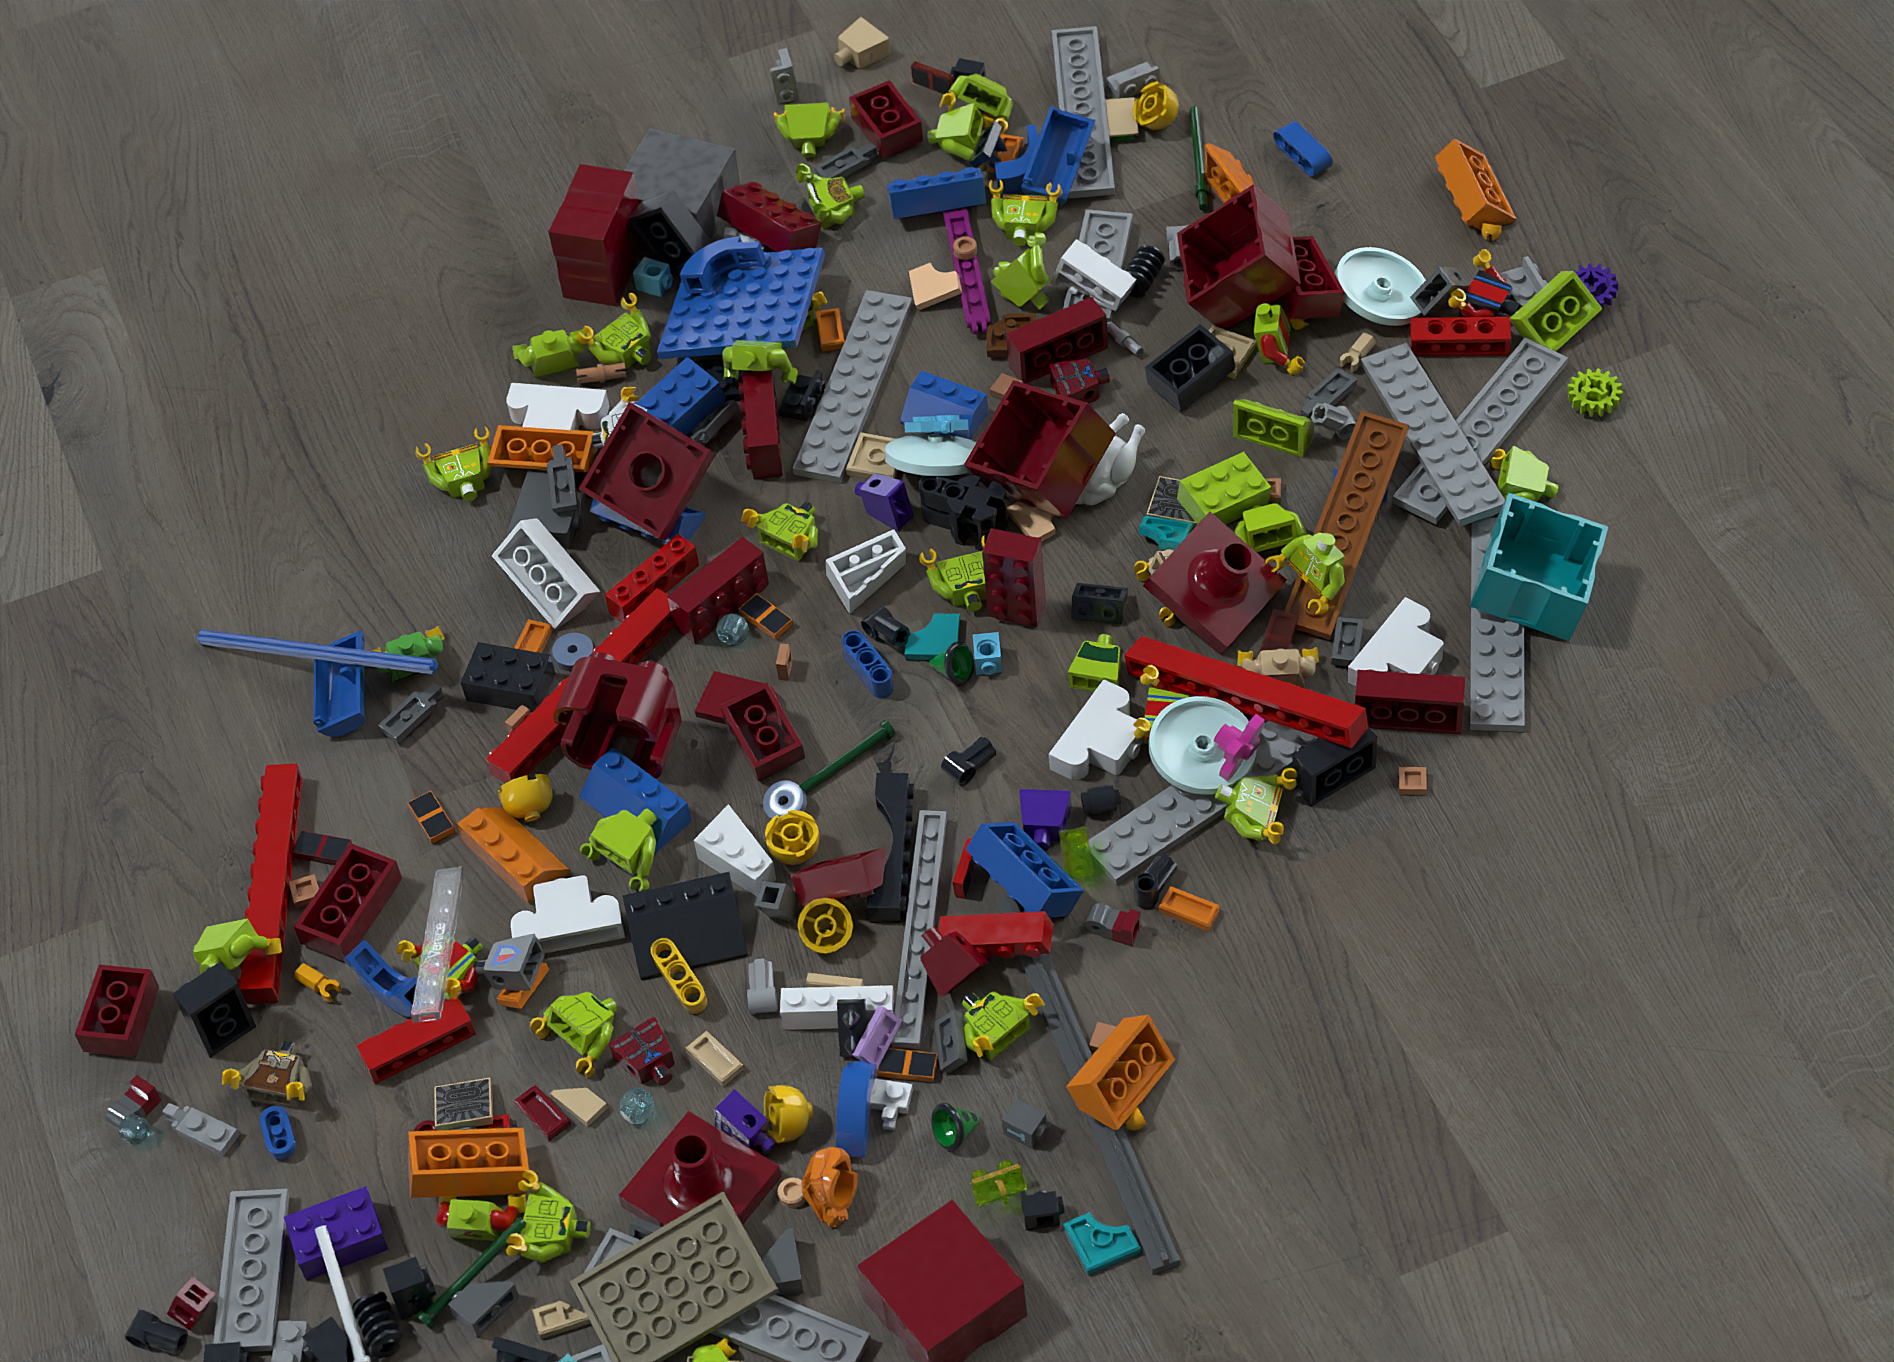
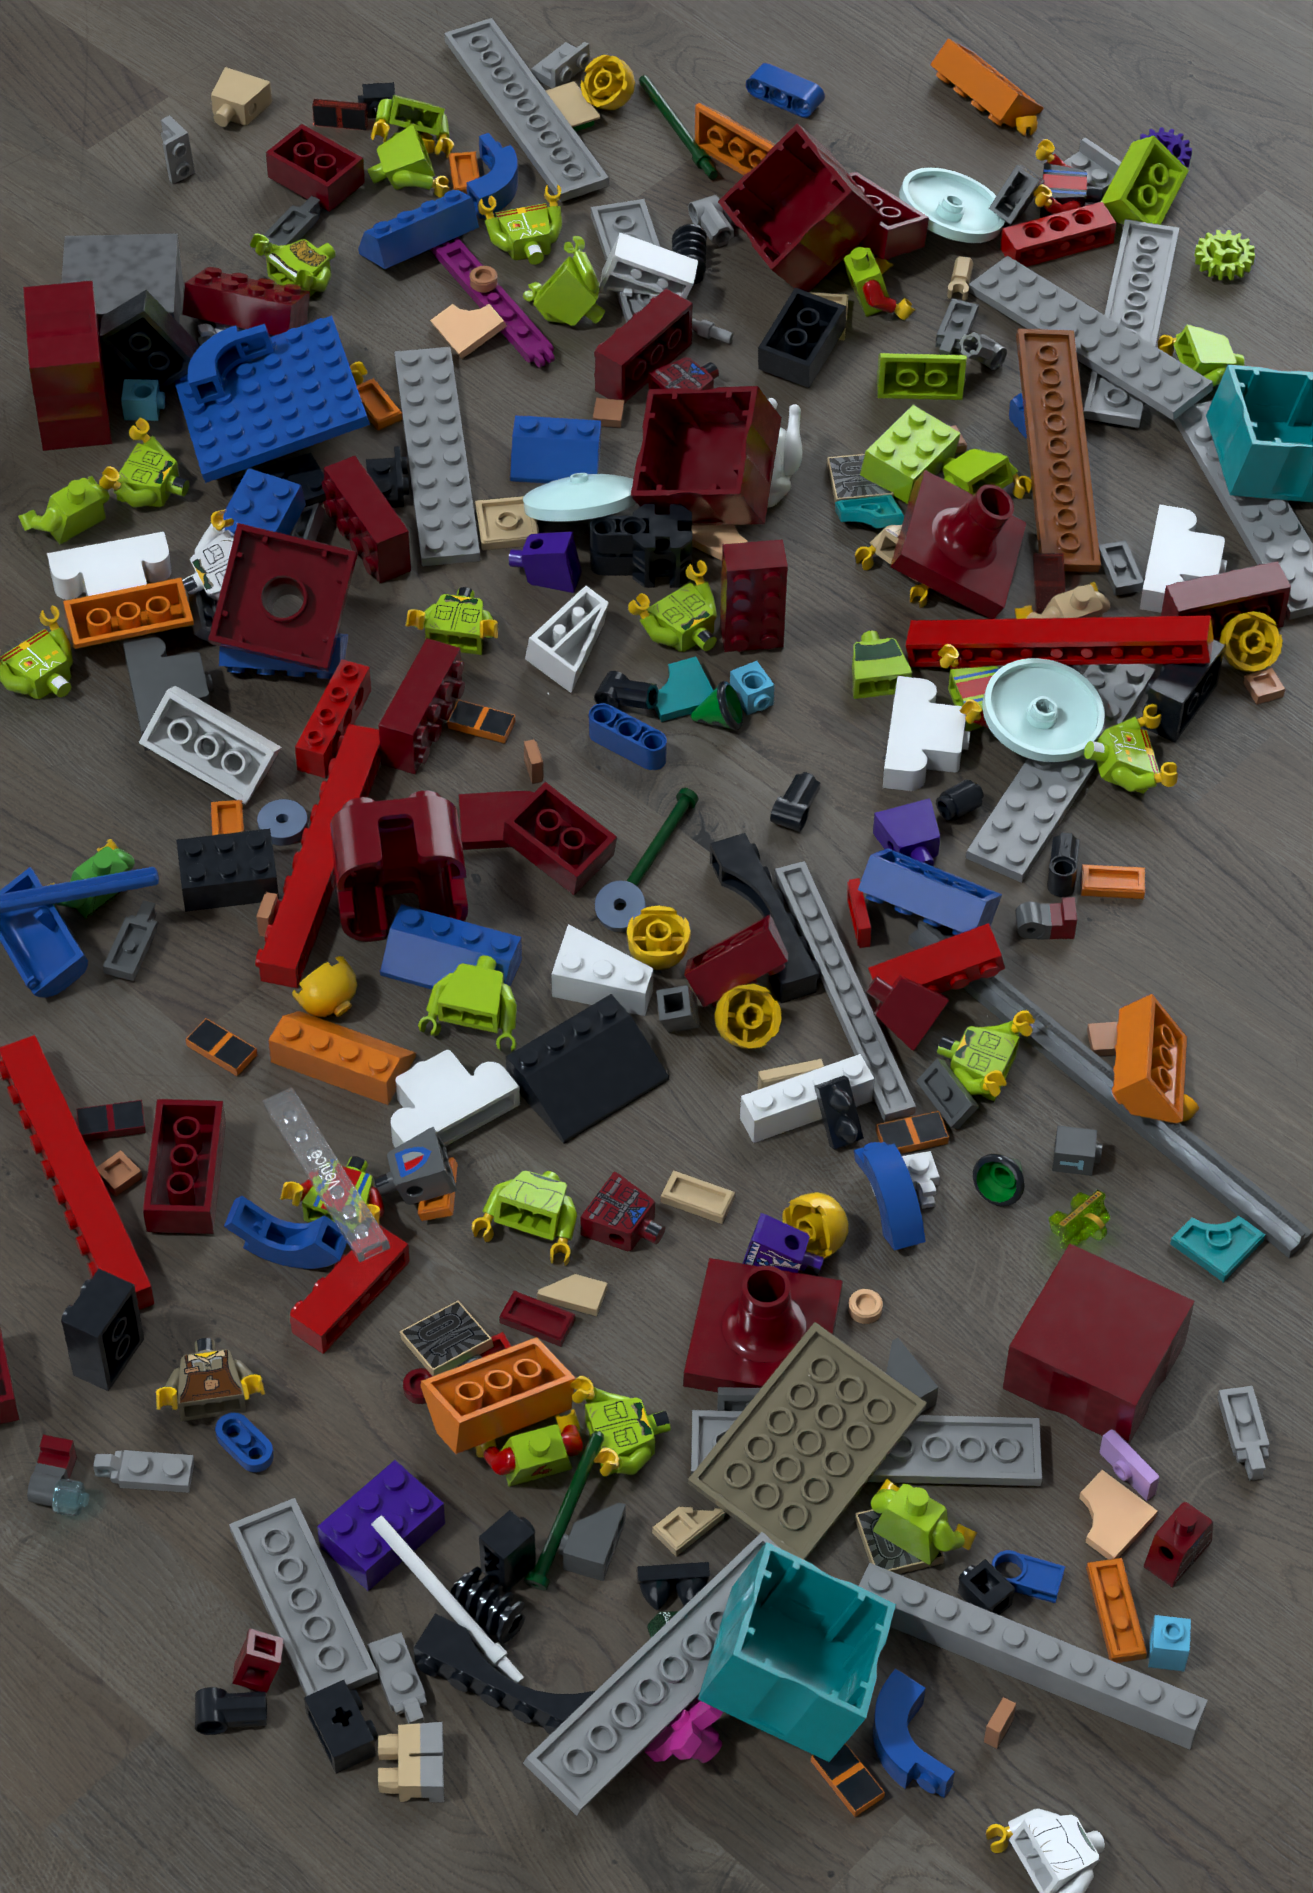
camera: 30 degrees left, 0 degrees up
(231, 944) = (81, 1251): lime torso -> none
(316, 981) = (193, 1265): light orange bar -> none
(562, 481) = (178, 639): dark grey hinge -> none
(601, 373) = (140, 518): nougat pin -> none
(636, 1105) = (645, 1273): clear light blue piece -> none
(674, 964) = (610, 1107): yellow beam -> none
(732, 629) = (455, 744): clear light blue piece -> none
(757, 357) = (329, 446): lime torso -> none
(762, 993) = (712, 1111): light grey piece -> none
(809, 125) = (228, 196): lime torso -> none
(830, 1185) = (907, 1272): orange helmet -> none
(877, 1036) = (872, 1111): lavender plate -> none
(940, 423) = (569, 463): medium azure plate -> none
(987, 145) = (449, 167): black tile -> none
(997, 332) = (573, 355): reddish brown plate -> none
(1041, 1209) = (1141, 1231): black brick -> none
(1057, 154) = (536, 154): blue container -> none
(1076, 852) = (969, 857): clear neon green hips -> none
(1098, 603) = (840, 603): black bracket -> none
(1238, 745) = (1091, 694): dark pink plant -> none
(1317, 563) = (1061, 493): lime torso -> none
(1413, 740) = (1251, 641): none -> yellow cylinder

